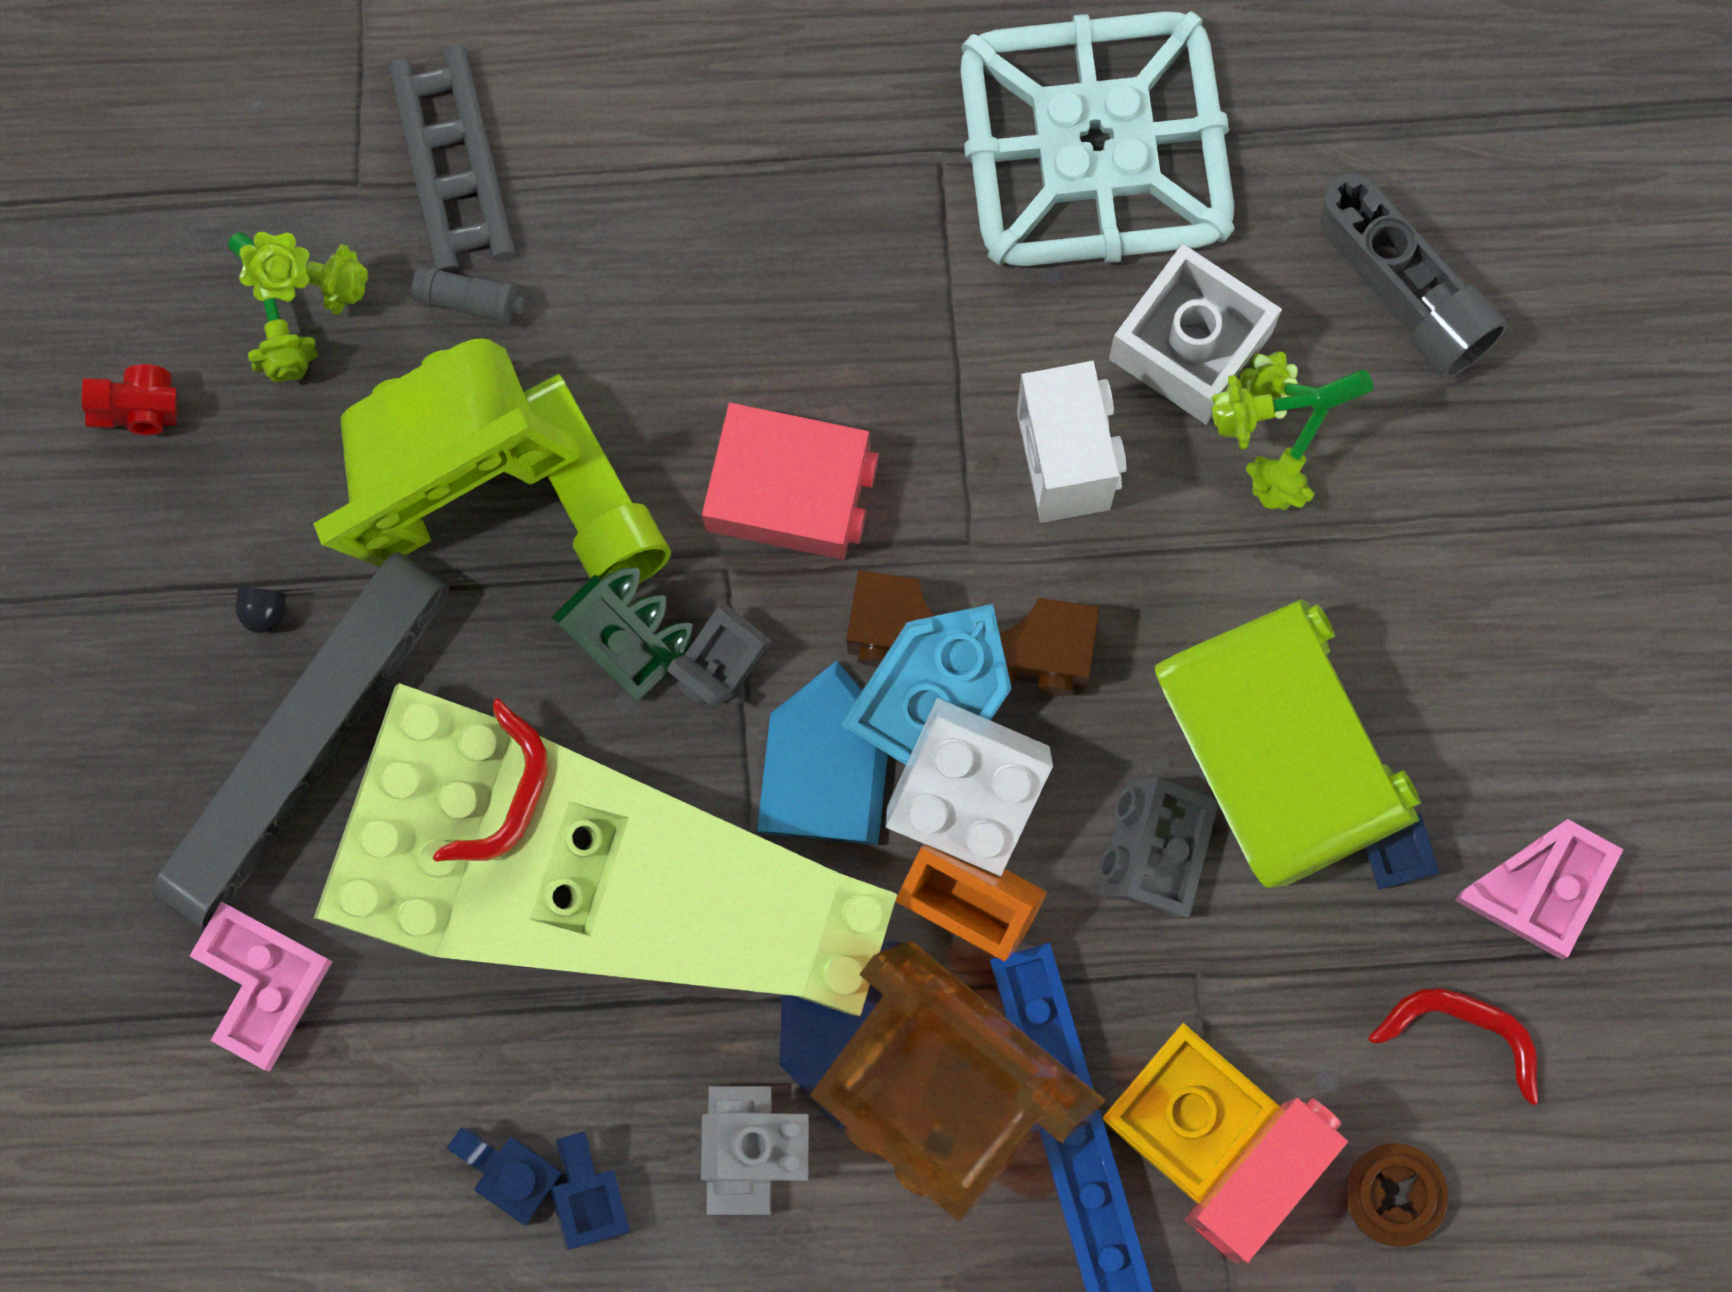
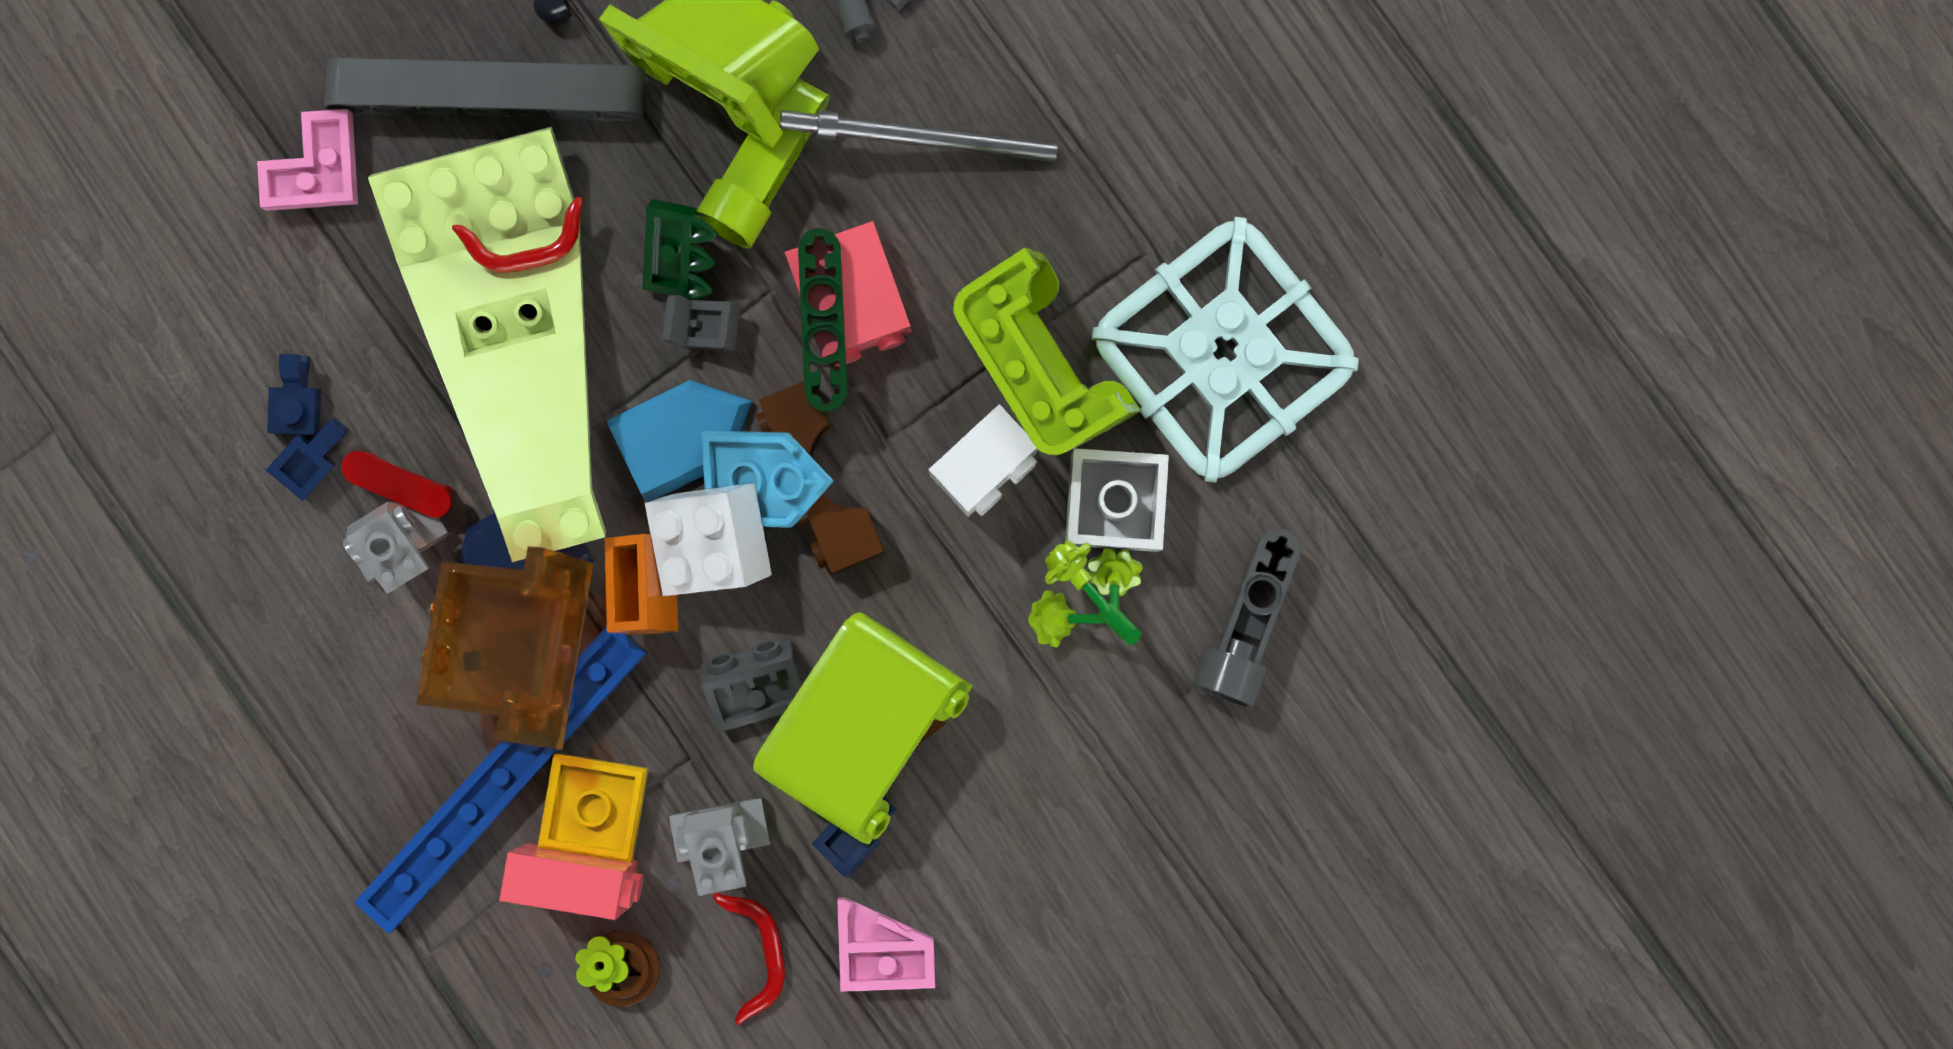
camera: 50 degrees right, 10 degrees up
(597, 382) = (828, 126): none -> flat silver bar
(680, 1106) = (397, 483): none -> red piece
(810, 509) = (818, 321): none -> dark green beam
(1070, 327) = (1026, 363): none -> lime windscreen
(1314, 981) = (714, 842): none -> light grey tile
(1362, 1206) = (614, 969): none -> lime plant

